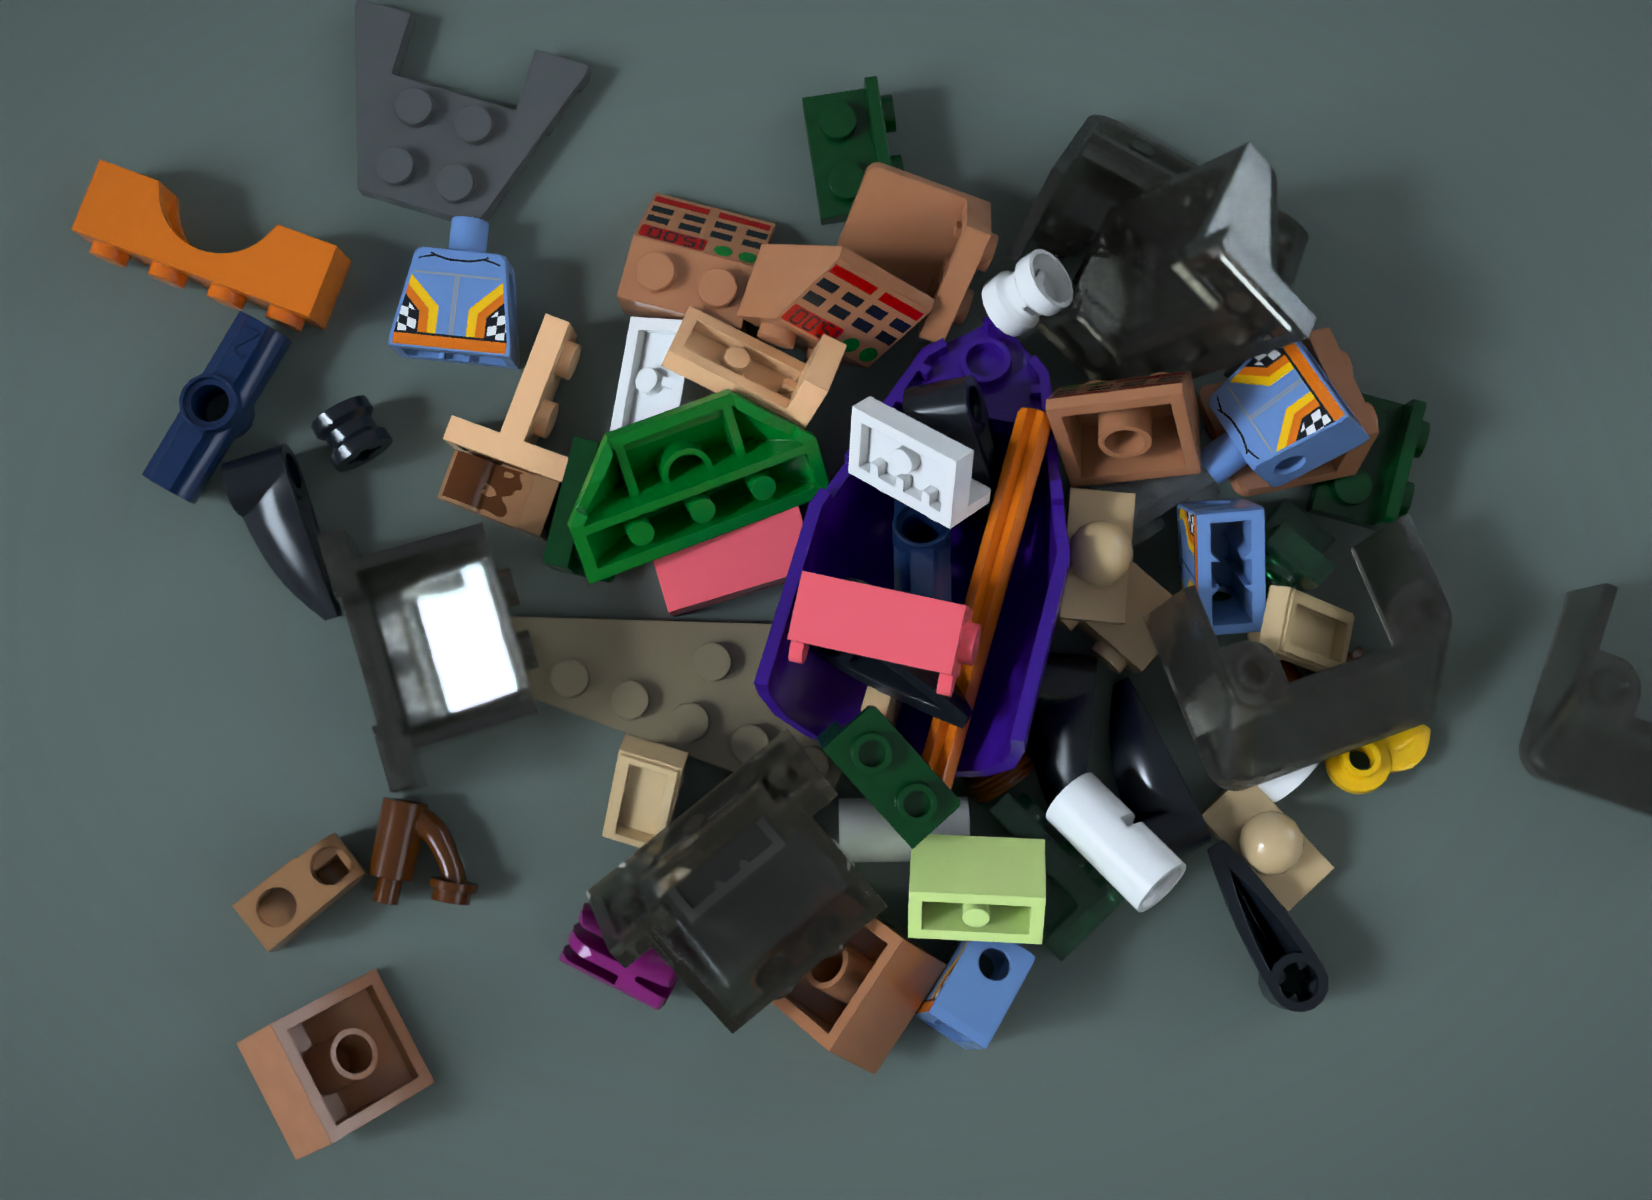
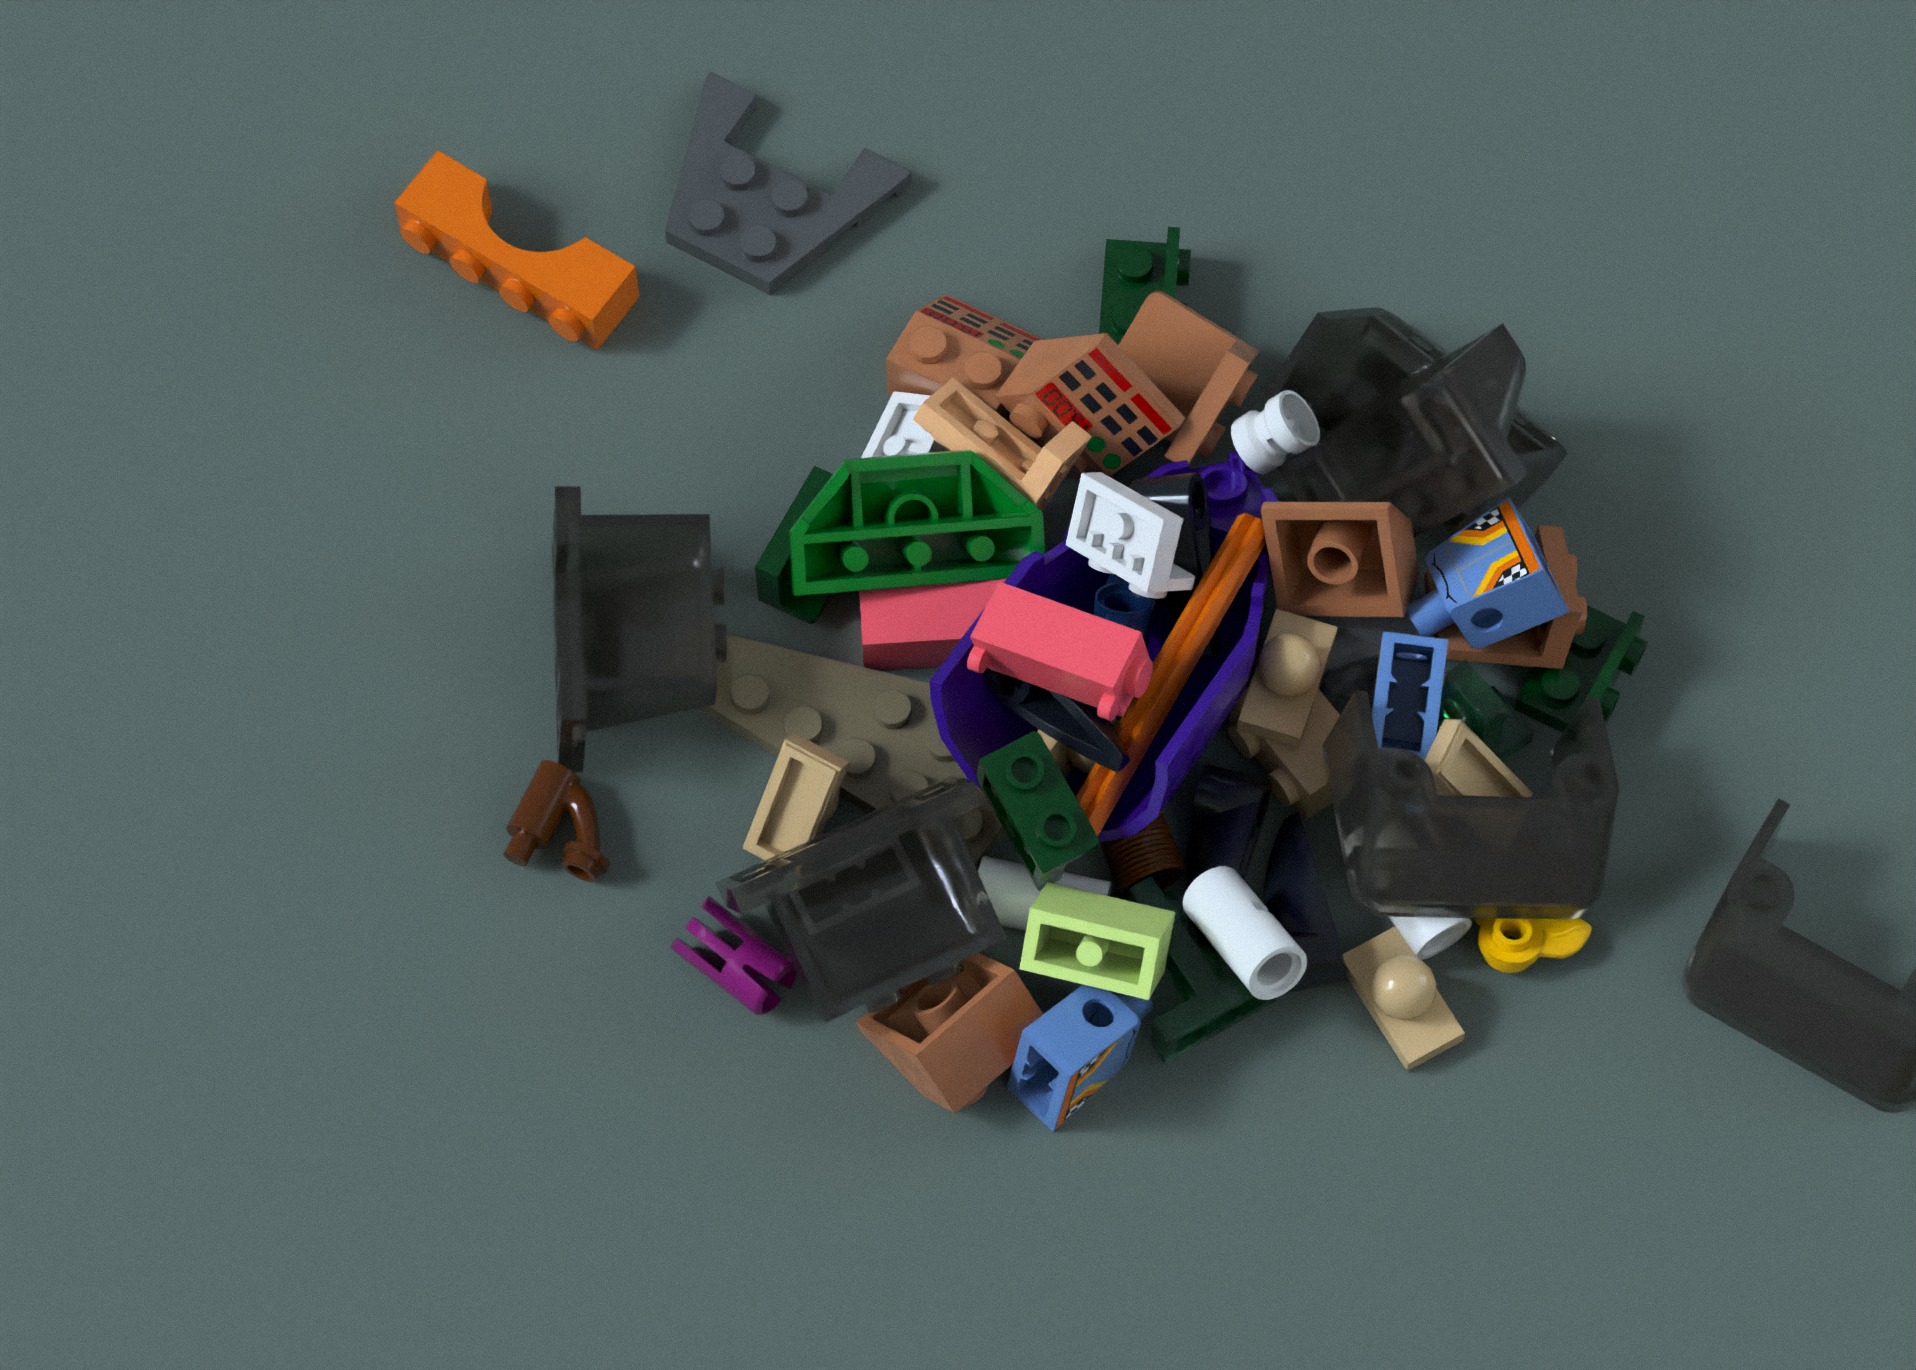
camera: 15 degrees right, 20 degrees down
(194, 444) = (456, 411): dark blue piece -> none
(278, 512) = (510, 500): black piece -> none
(299, 892) = (435, 828): medium nougat leg -> none
(335, 1064) = (424, 990): nougat slope -> none
(351, 433) = (601, 435): black wheel -> none
(459, 303) = (733, 347): medium blue torso -> none
(501, 494) = (738, 521): leg -> none
(531, 410) = (762, 475): light nougat bracket -> none
(1268, 933) = (1382, 1076): black piece -> none

